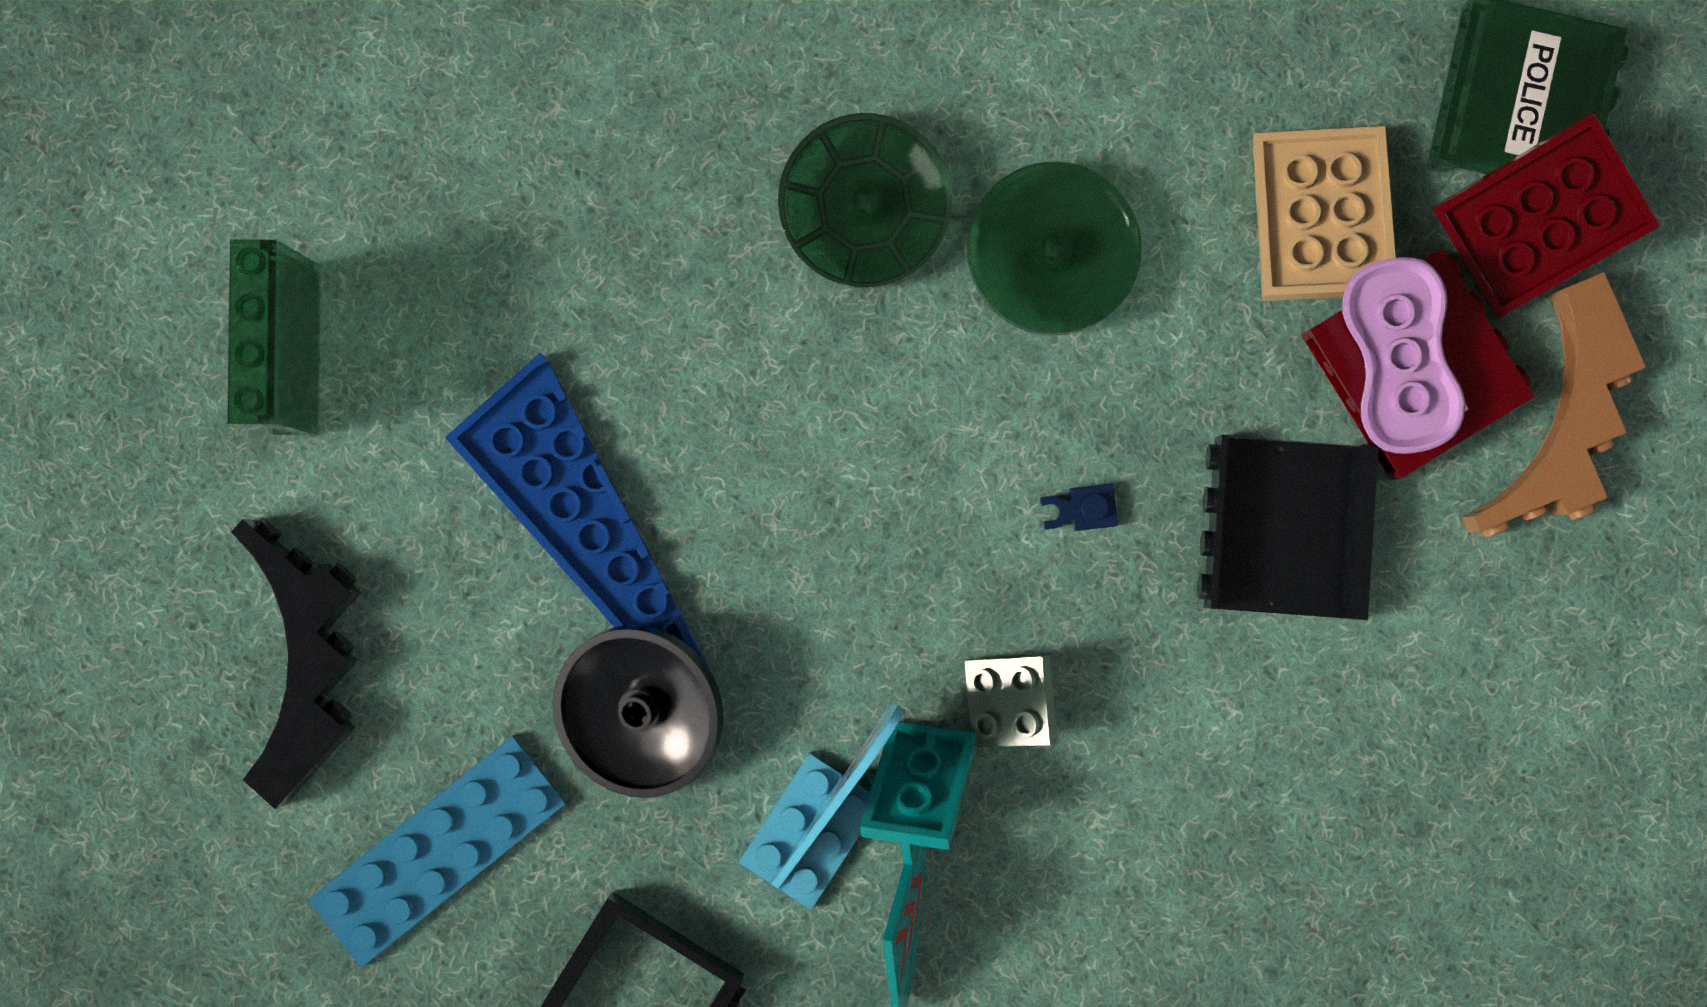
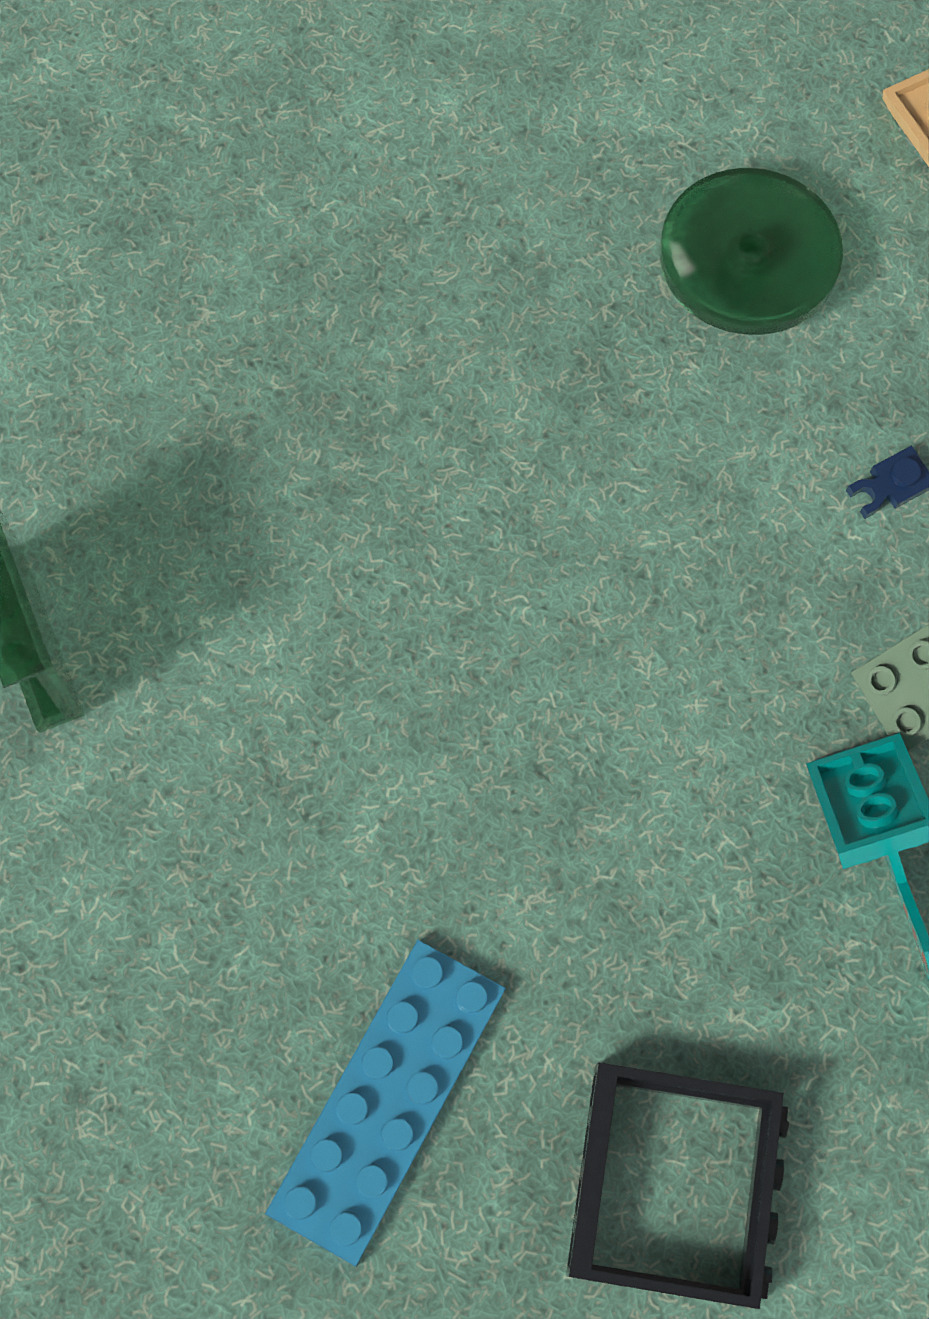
camera: 25 degrees left, 15 degrees down
(309, 604) = (192, 1017): black arch -> none
(552, 480) = (351, 661): blue wing -> none
(638, 711) = (543, 852): black dish -> none
(816, 821) = (783, 883): medium azure piece -> none
(864, 200) = (549, 275): clear green dish -> none

